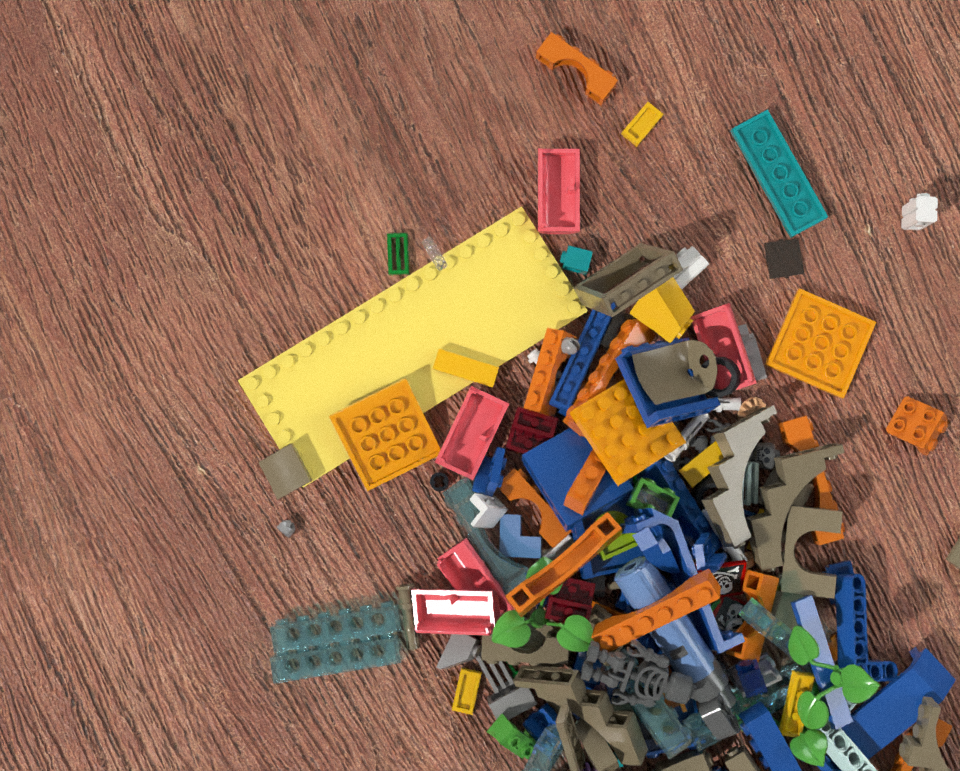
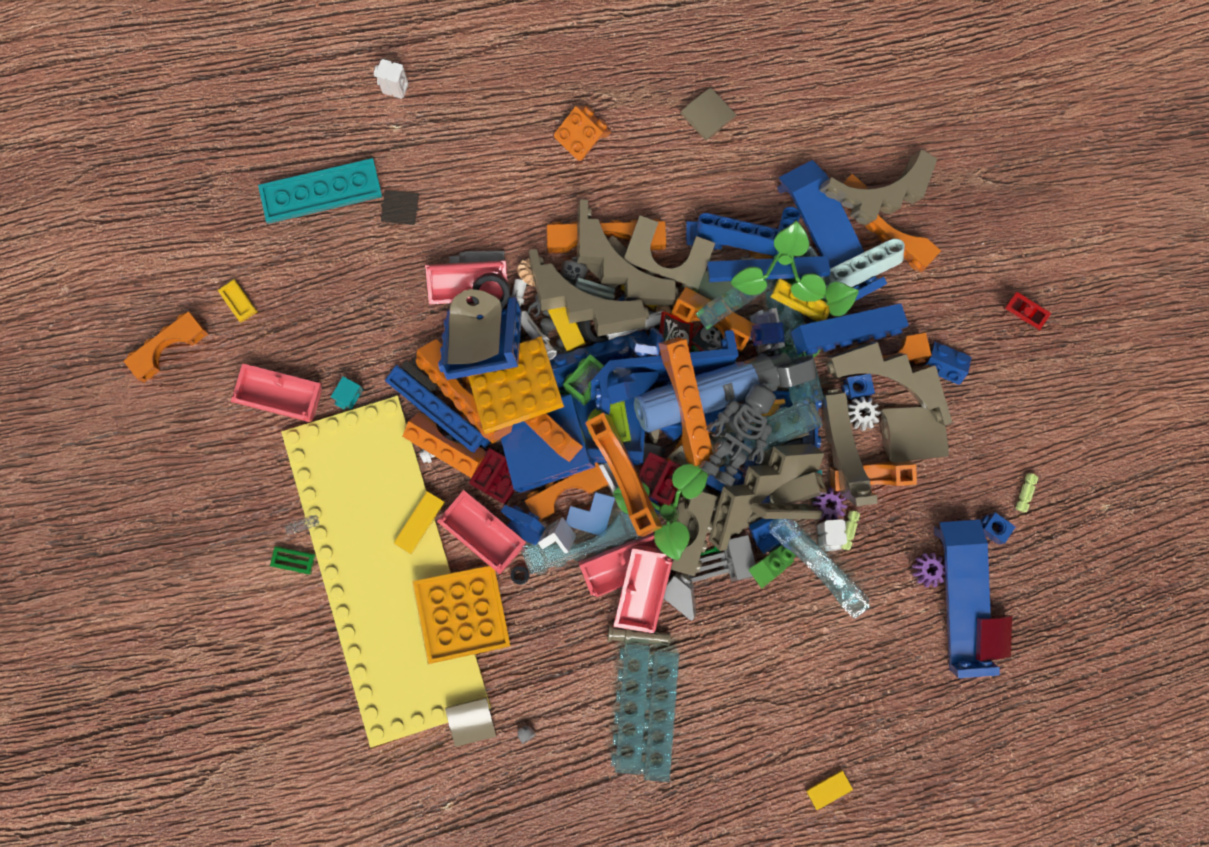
camera: 80 degrees left, 5 degrees down
(466, 691) = (721, 598): yellow tile -> none
(570, 345) = (424, 419): light grey hinge -> none
(634, 288) = (377, 350): dark tan window -> none
(665, 311) = (413, 324): yellow slope -> none
(692, 265) = (384, 299): white brick -> none
(820, 343) = (485, 196): light orange plate -> none

